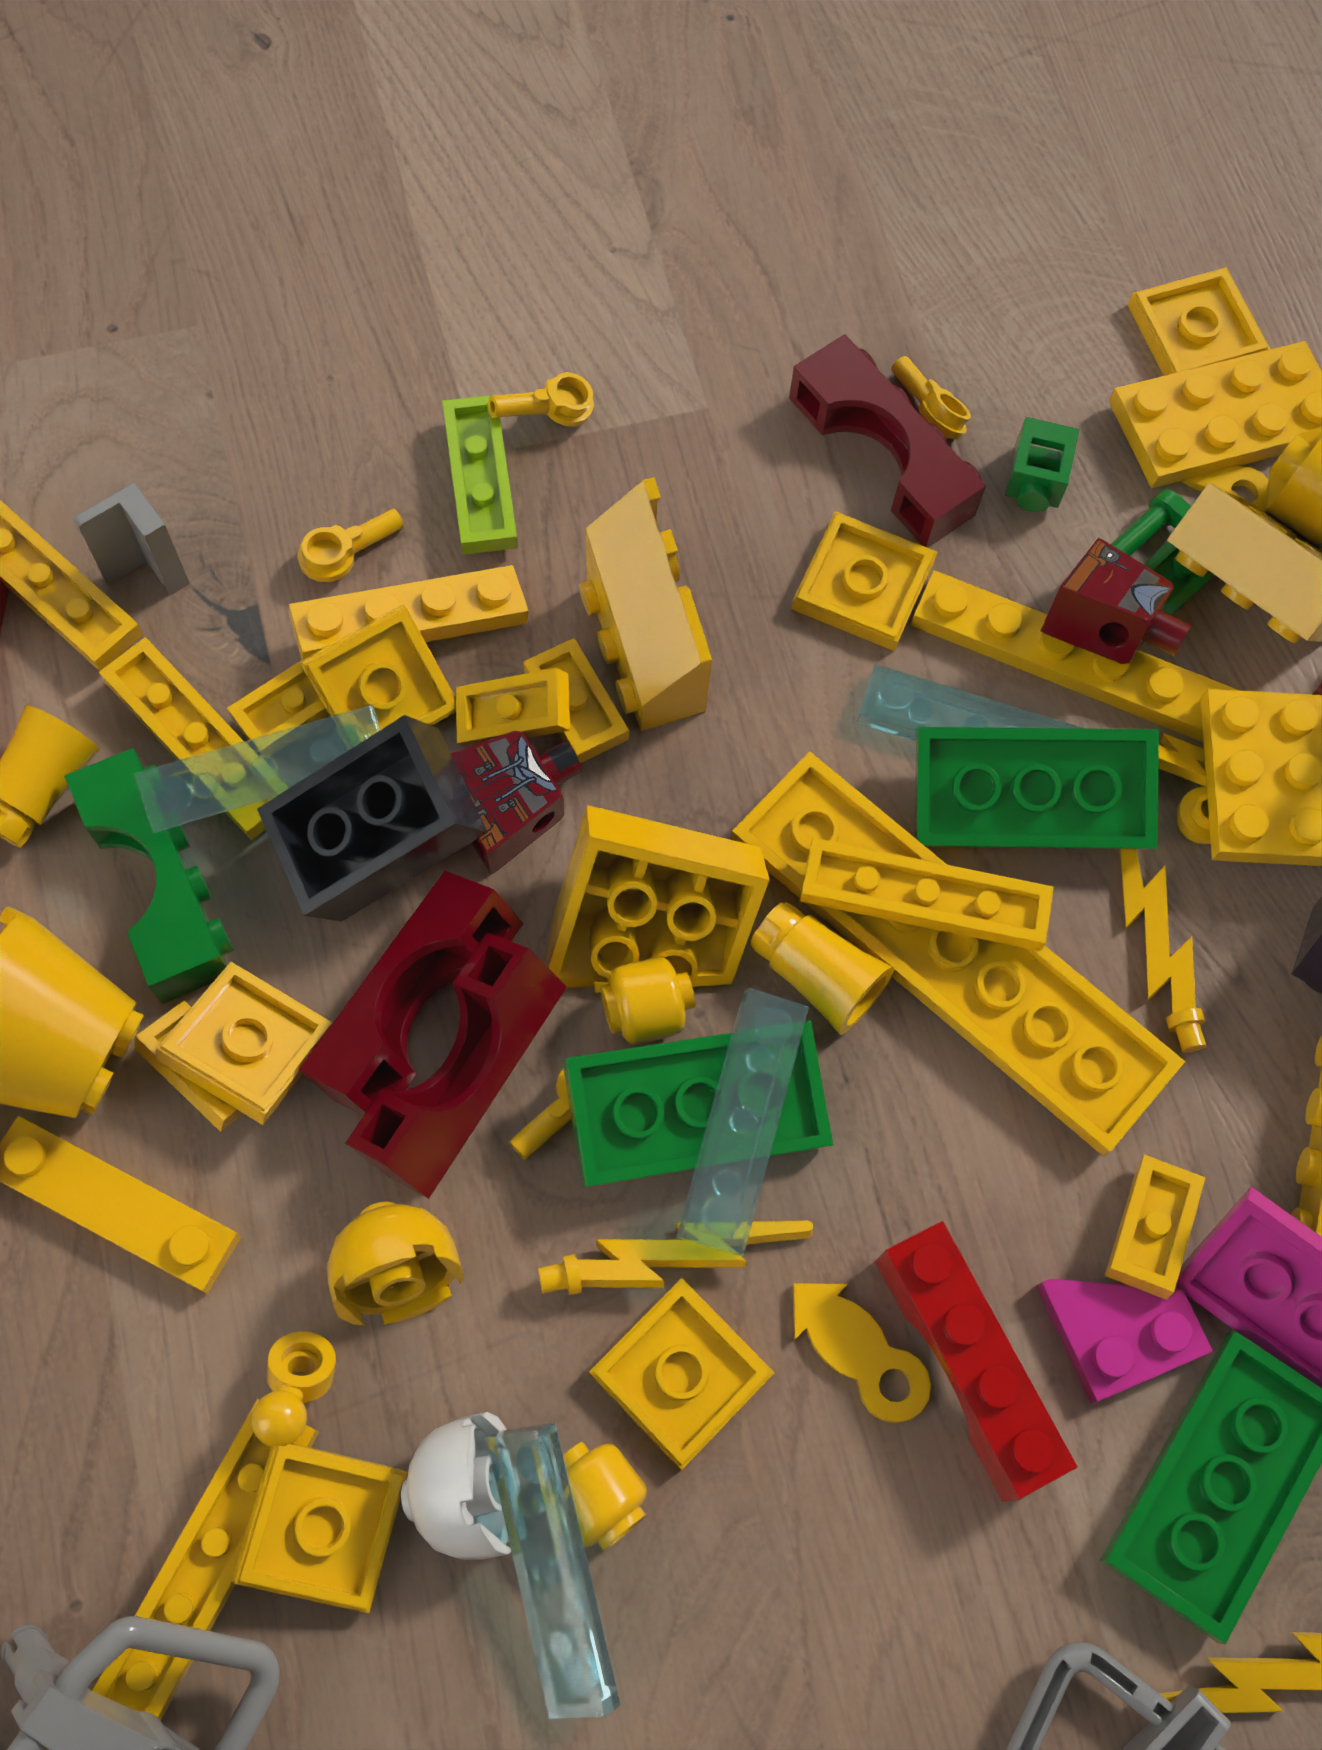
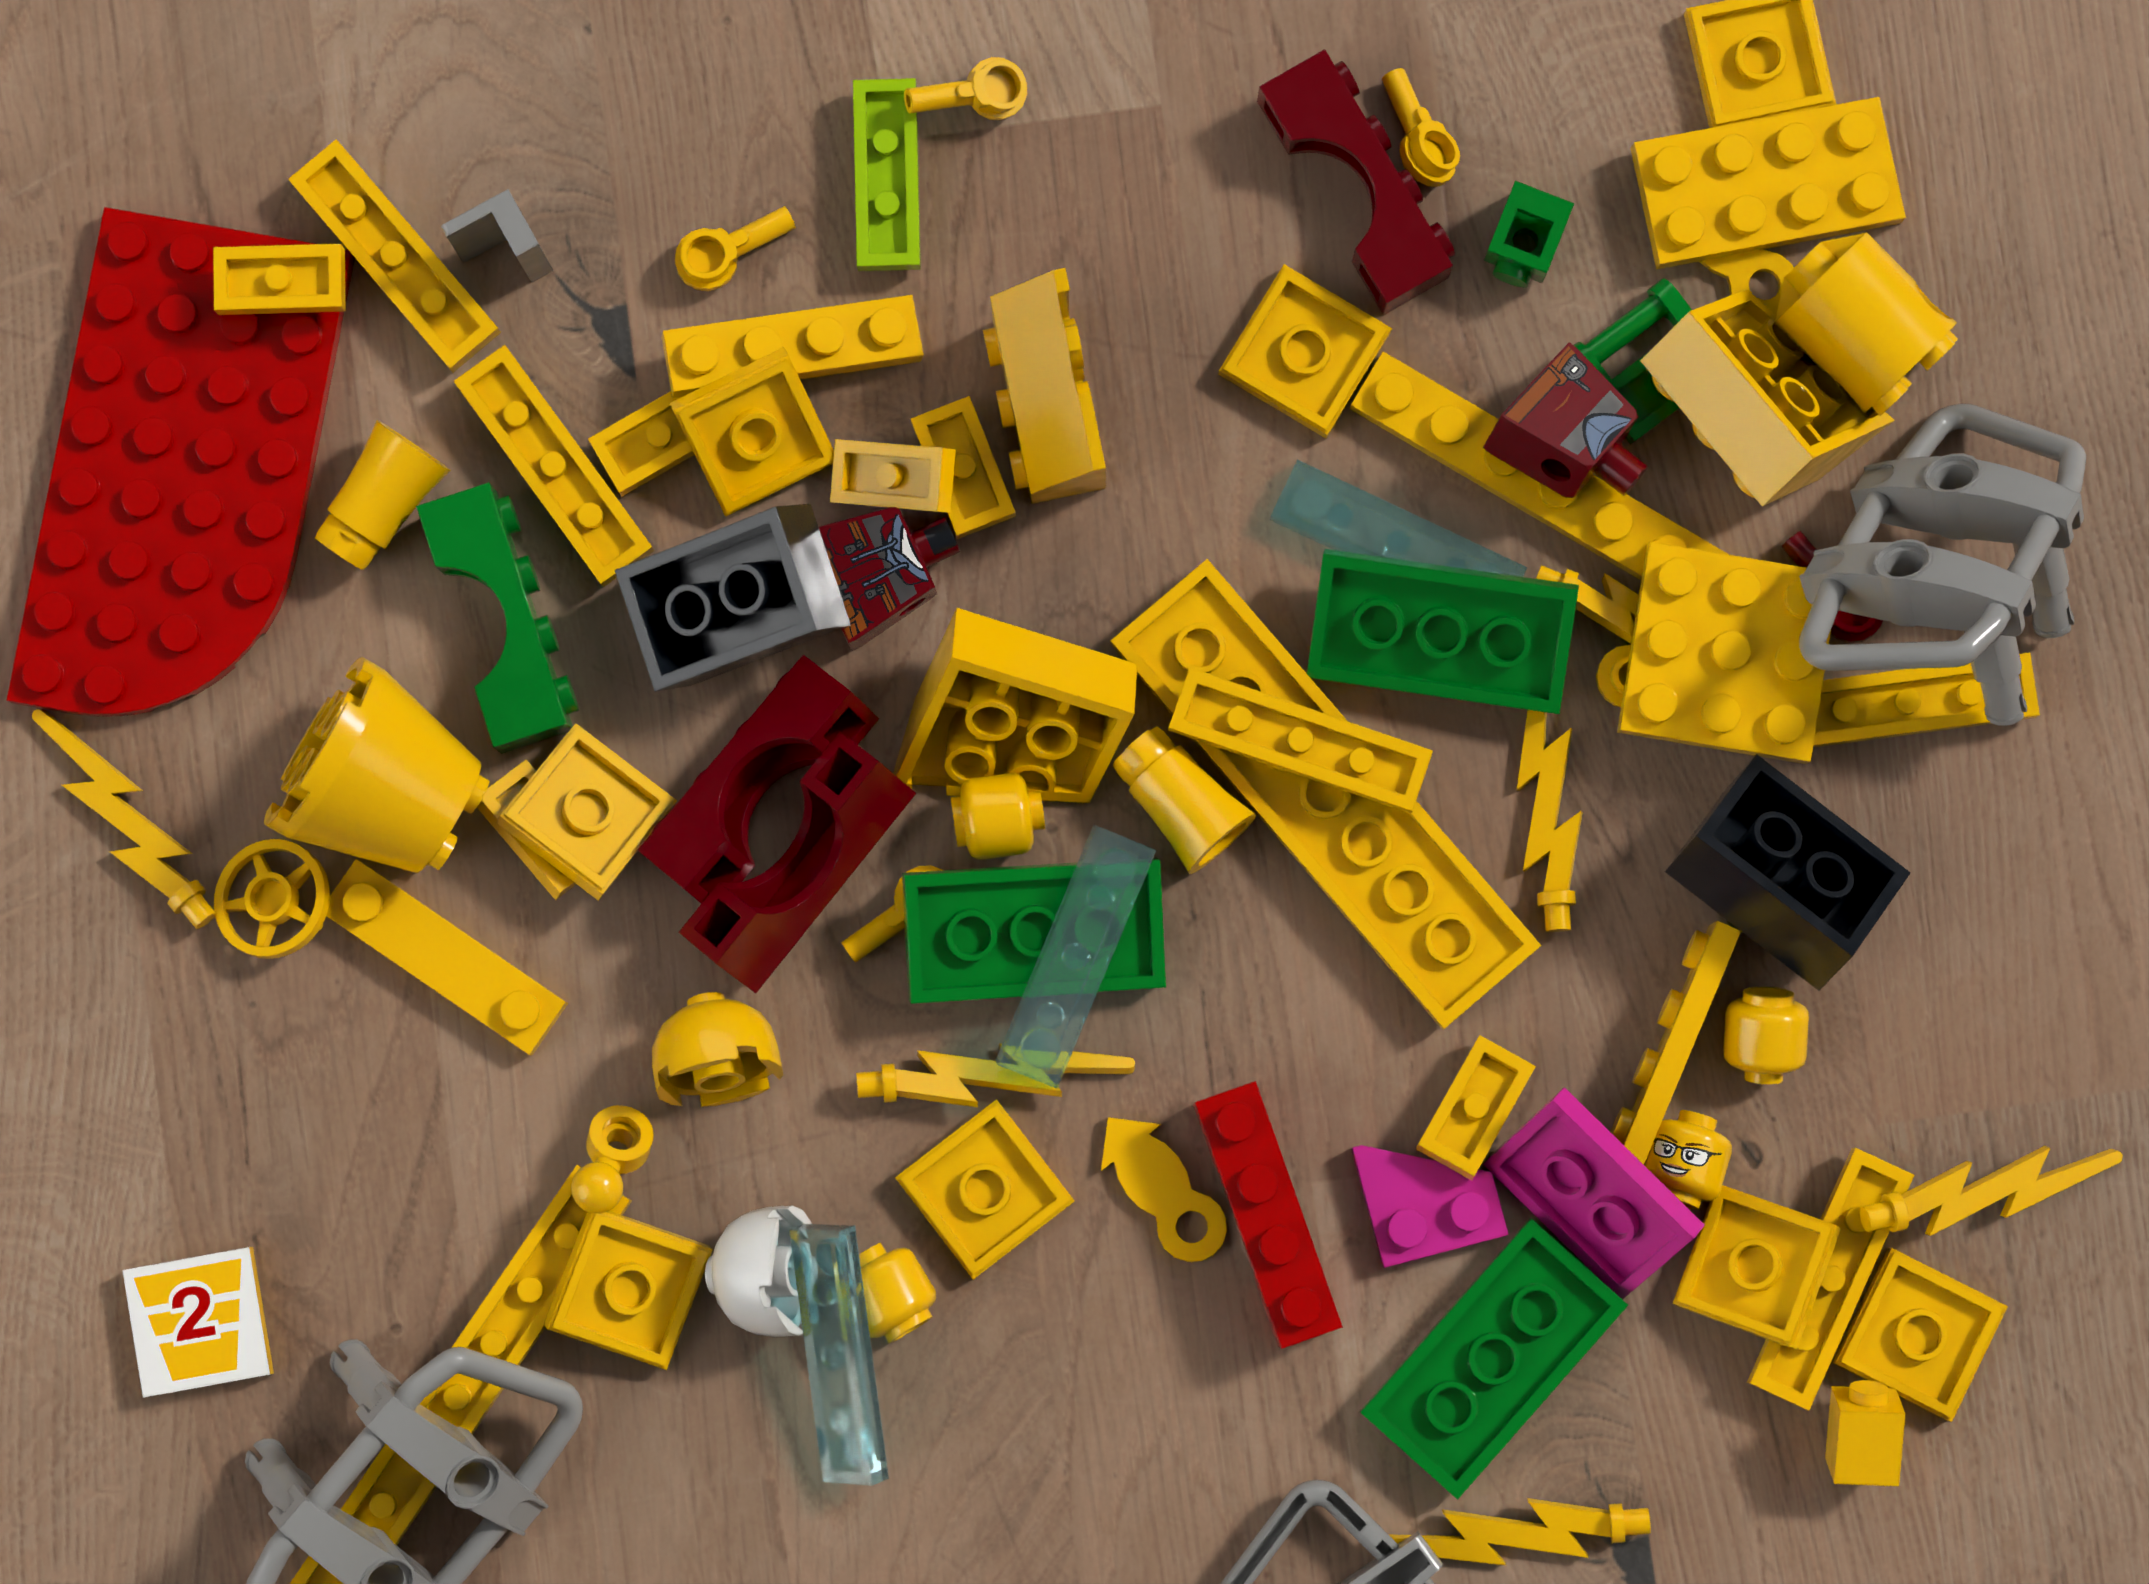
camera: 15 degrees right, 15 degrees up
(248, 770) = (620, 524): clear light blue plate -> none

